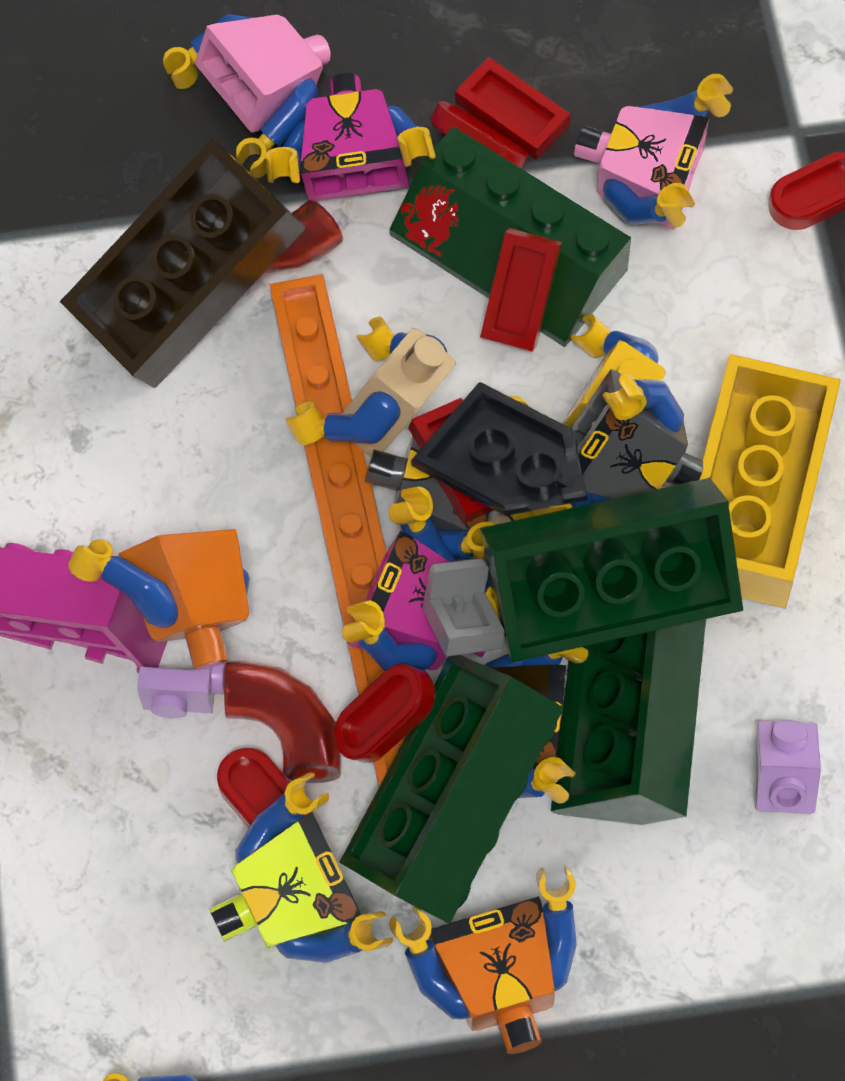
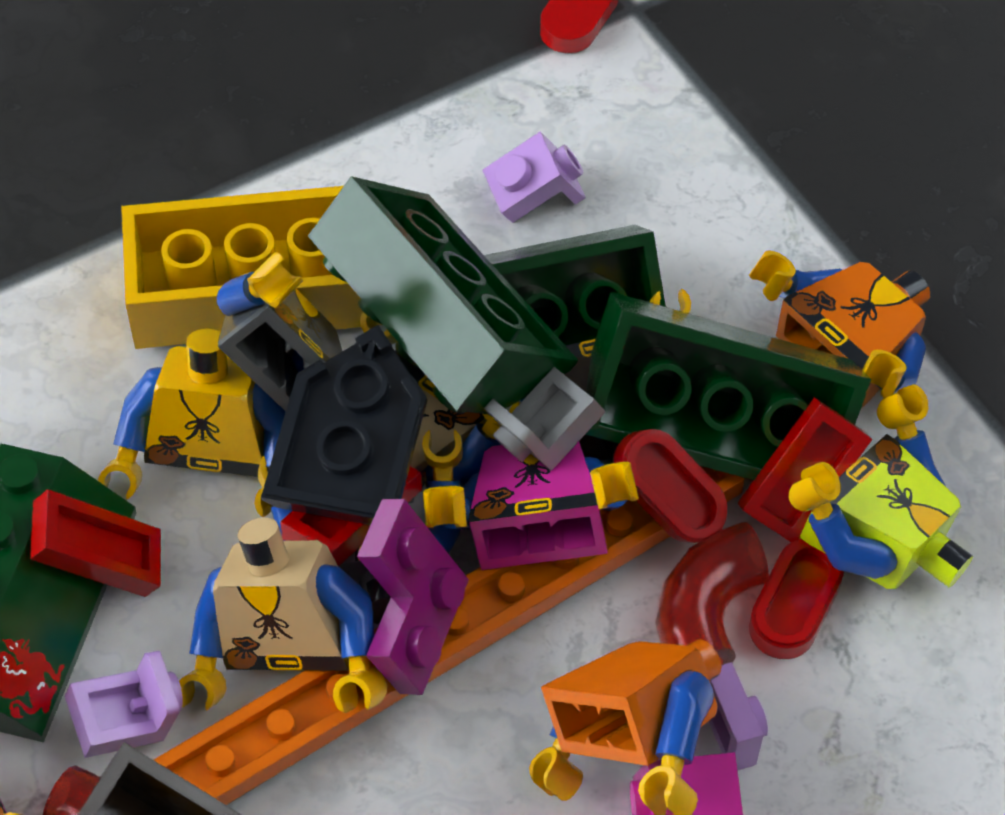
camera: 115 degrees left, 10 degrees down
(357, 832) = (814, 438): none -> red tile
(358, 479) = (423, 591): none -> magenta plate
(379, 278) = (125, 707): none -> lavender bracket

